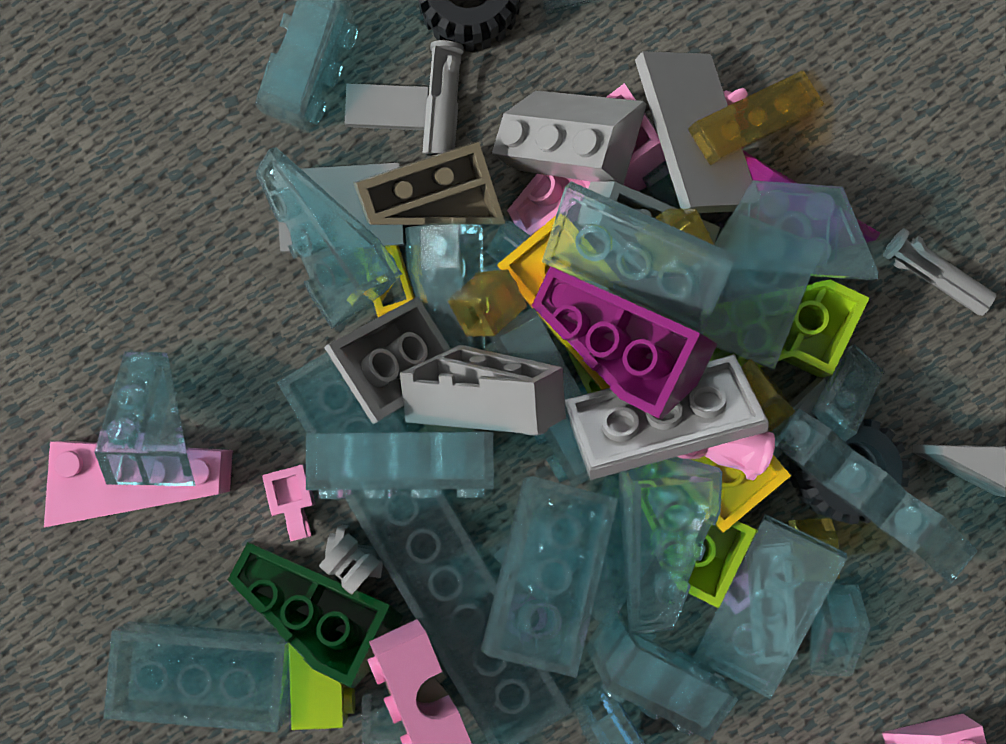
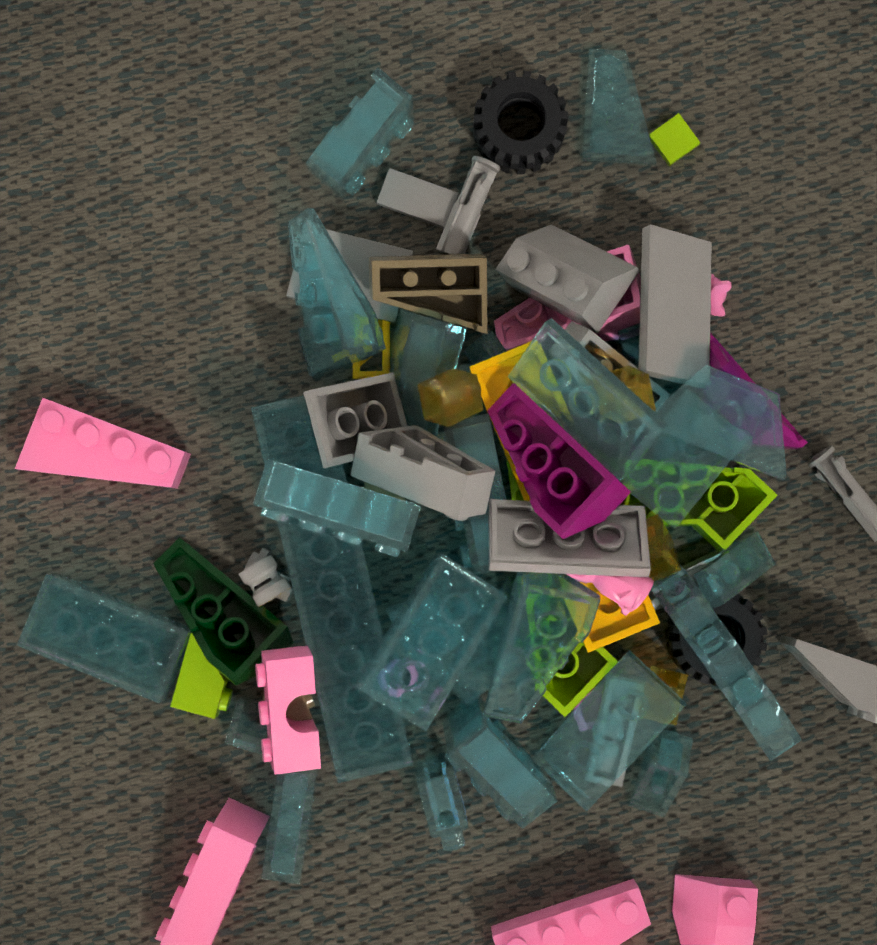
camera: 15 degrees right, 0 degrees up
(144, 426) = (129, 410): clear light blue wedge -> none
(288, 495) = (229, 506): bright pink plate -> none
(755, 117) = (732, 309): clear yellow tile -> none

